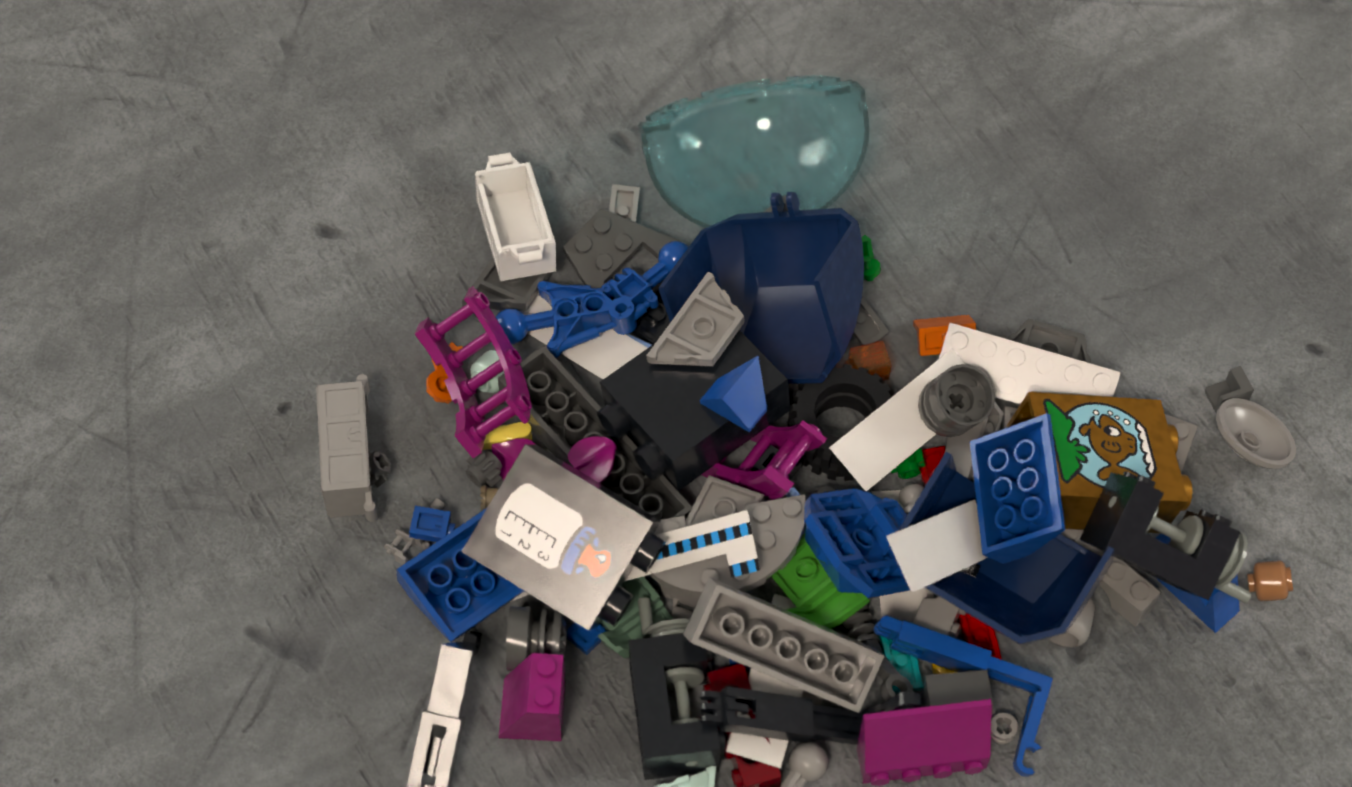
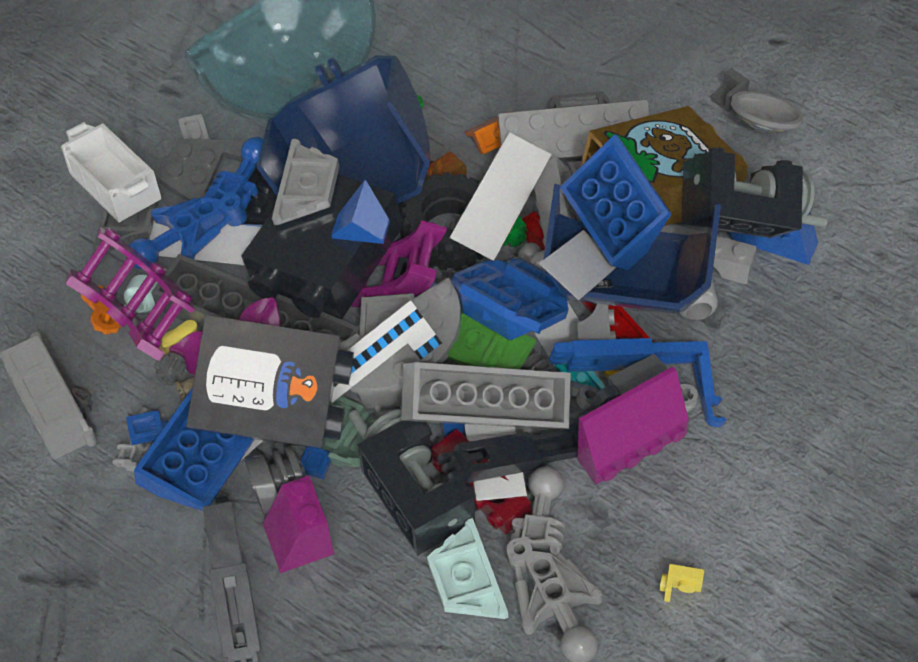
camera: 20 degrees left, 5 degrees down
(968, 392) = (533, 164): dark grey wheel -> none
(1270, 581) = (833, 207): medium nougat head -> none

